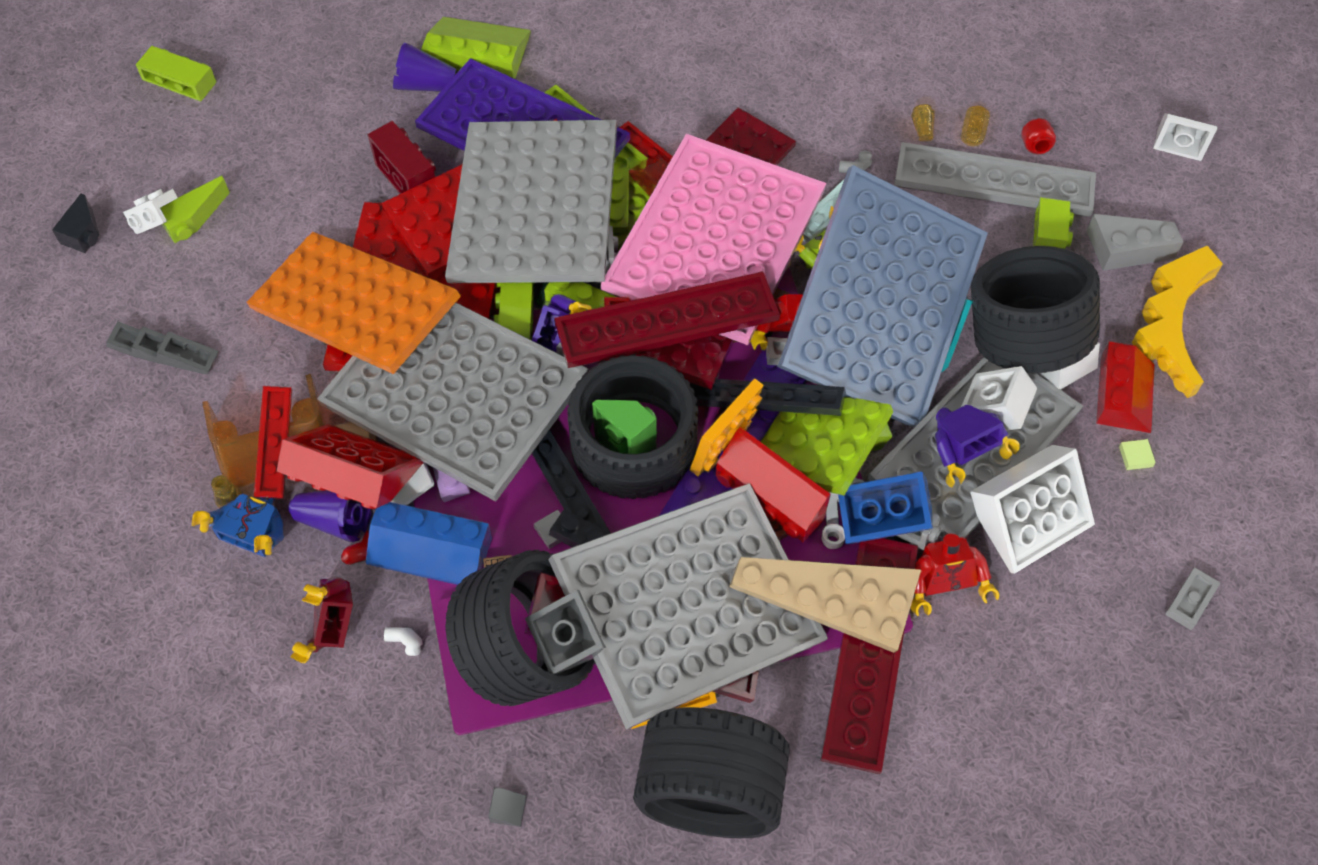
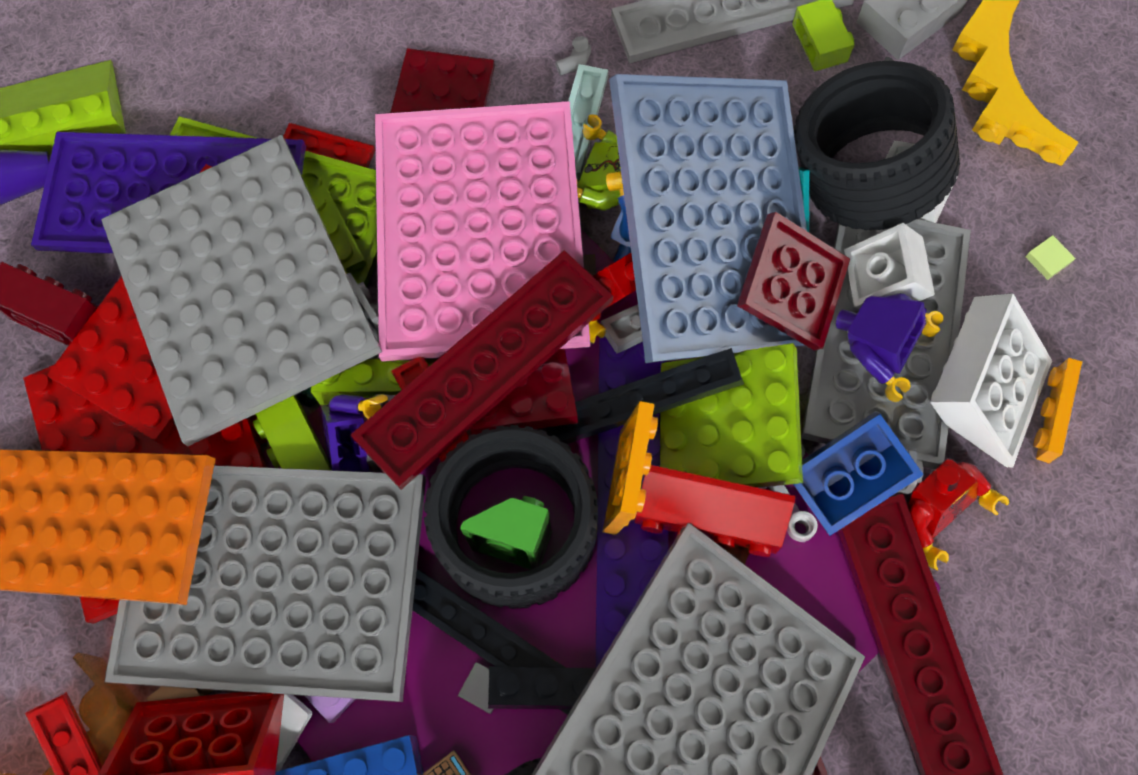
camera: 25 degrees left, 10 degrees up
(648, 174) = (355, 181): clear red slope -> none
(849, 598) = (865, 605): tan wing -> none
(919, 370) = (794, 281): none -> dark red plate
(1074, 554) = (1057, 410): none -> light orange plate
(1125, 388) = (998, 188): red slope -> none

